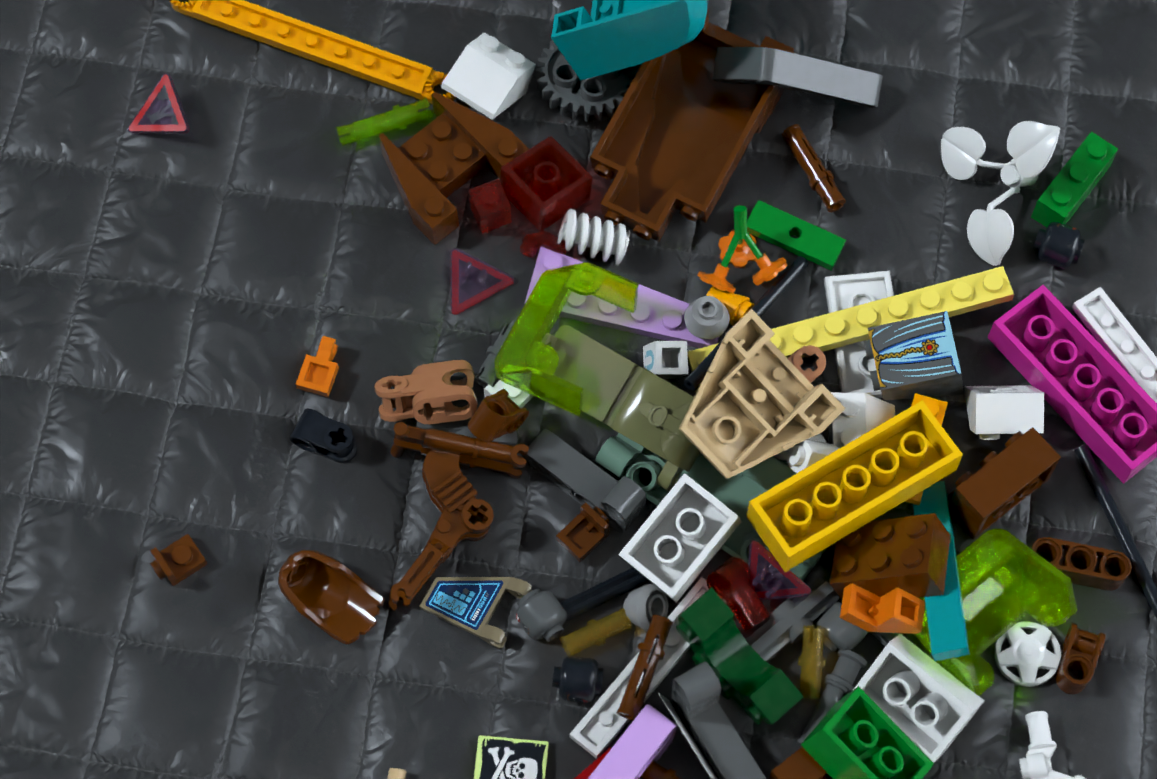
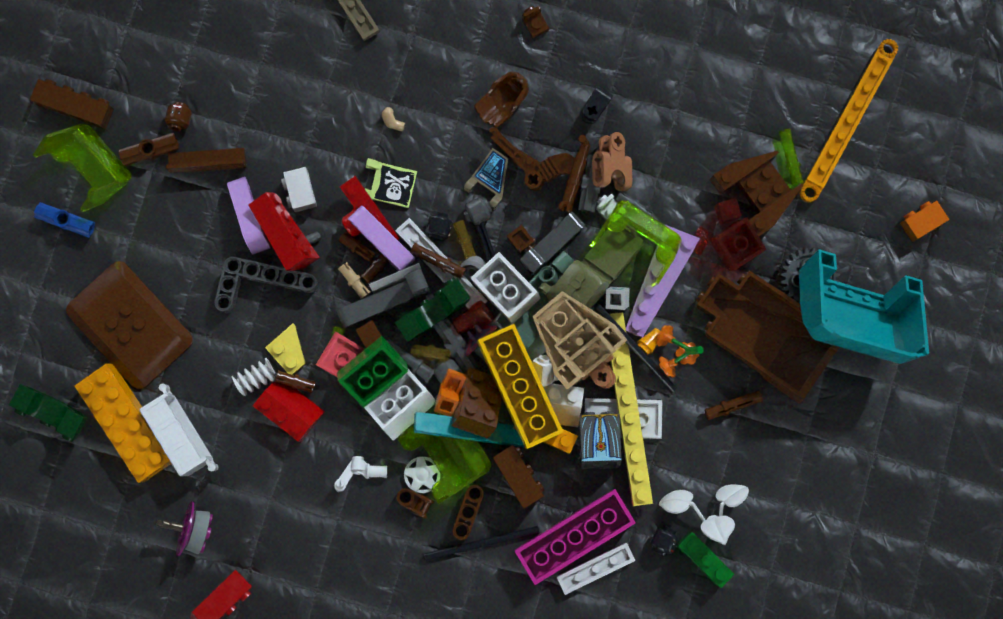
camera: 90 degrees right, 15 degrees up
(161, 111) = (810, 29): piece -> none
(319, 372) = (636, 104): orange plate -> none
(473, 281) = (684, 198): piece -> none
(489, 76) = (812, 219): white slope -> none
(497, 417) = (589, 196): reddish brown piece -> none
(593, 235) = (699, 267): white piece -> none
(706, 317) = (641, 331): light grey cone -> none
(777, 227) = (697, 377): green tile -> none
(798, 74) = (786, 401): beam -> none
(1004, 410) = (564, 487): white slope -> none

